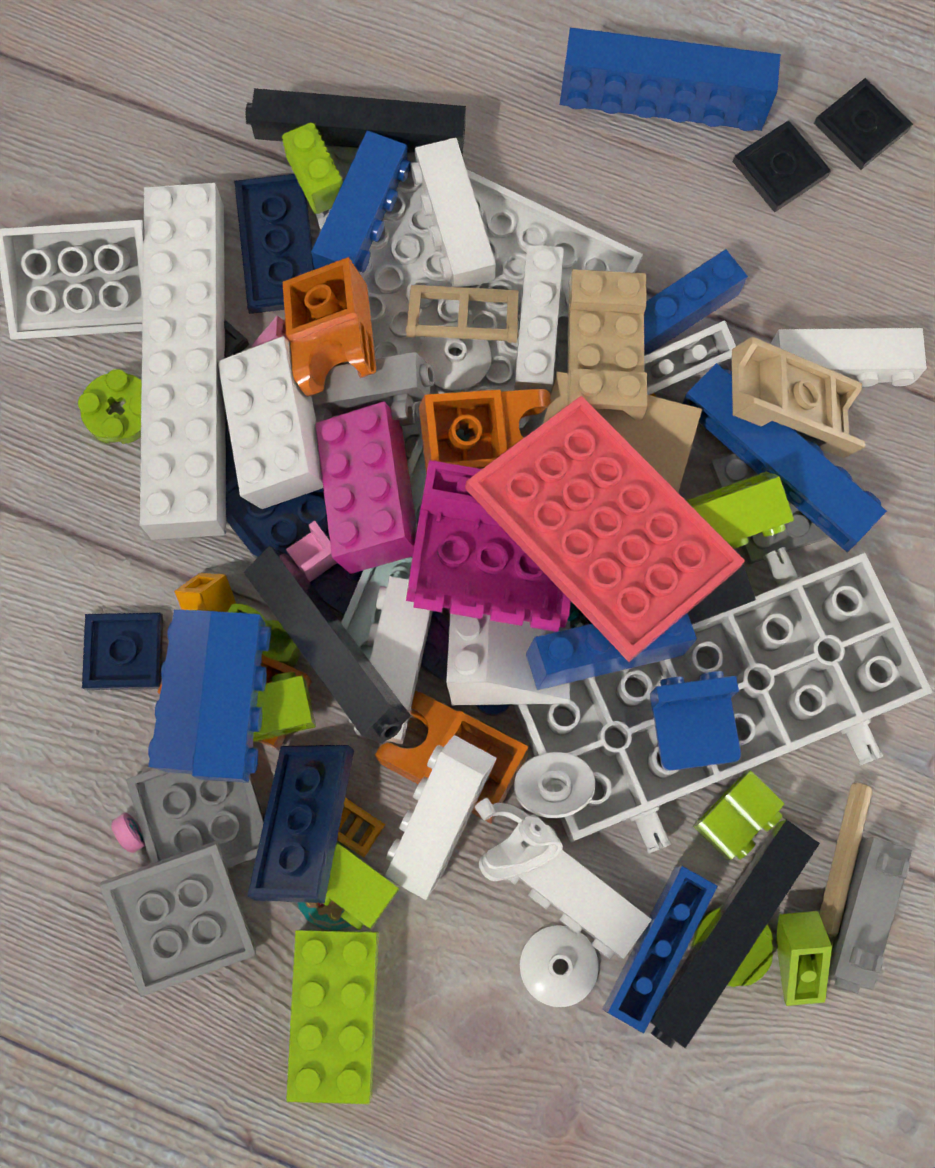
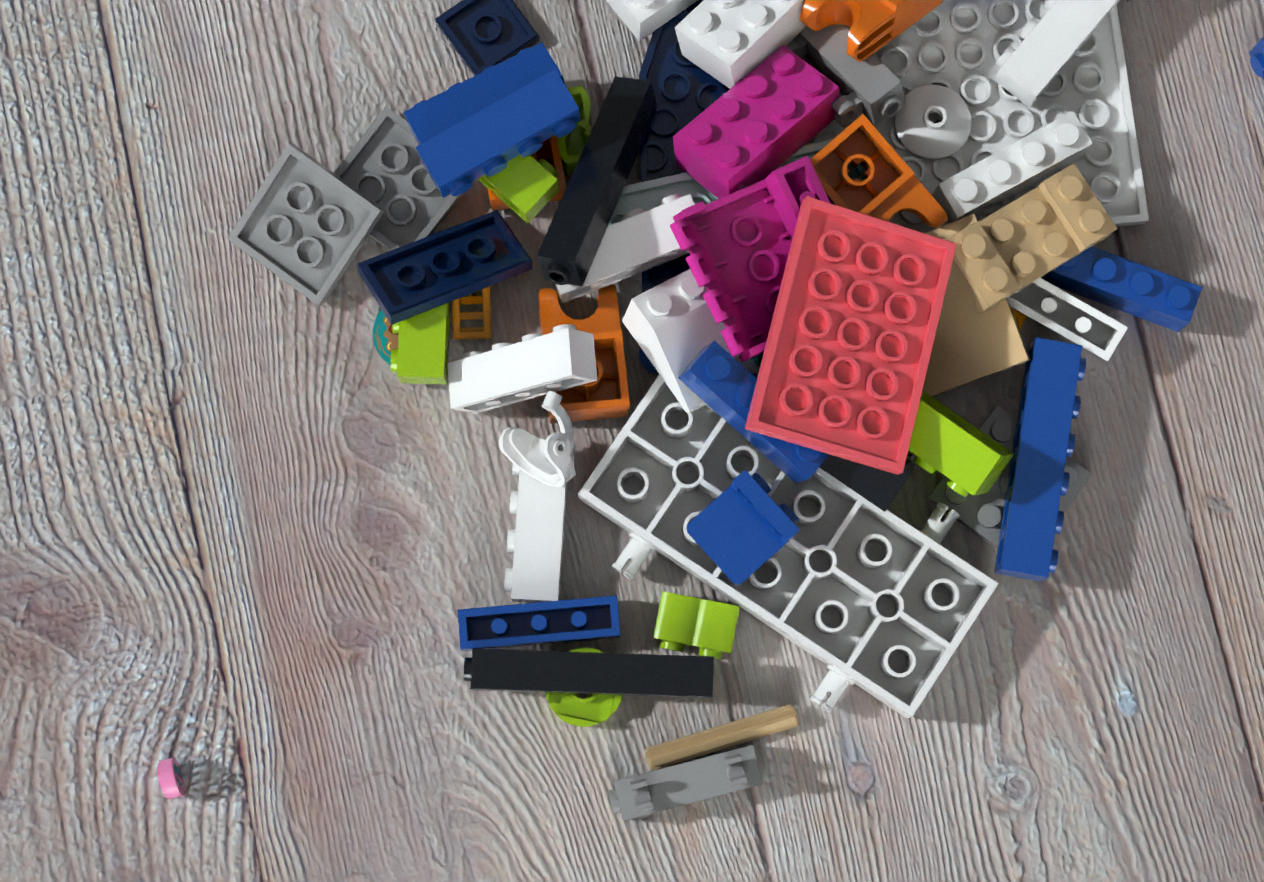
camera: 60 degrees right, 5 degrees up
(128, 832) = (345, 137): bright pink tile -> none
(206, 593) = (578, 62): light orange panel -> none
(312, 553) = (669, 120): bright pink panel -> none
(333, 1017) = (312, 398): lime brick -> none
(464, 295) = (993, 91): tan window -> none
(538, 960) = (476, 576): white dish -> none
(554, 784) = (609, 444): white dish -> none
(794, 393) = (1101, 434): tan piece -> none
(803, 957) = (612, 750): lime slope -> none
(861, 354) = (1183, 463): white brick -> none

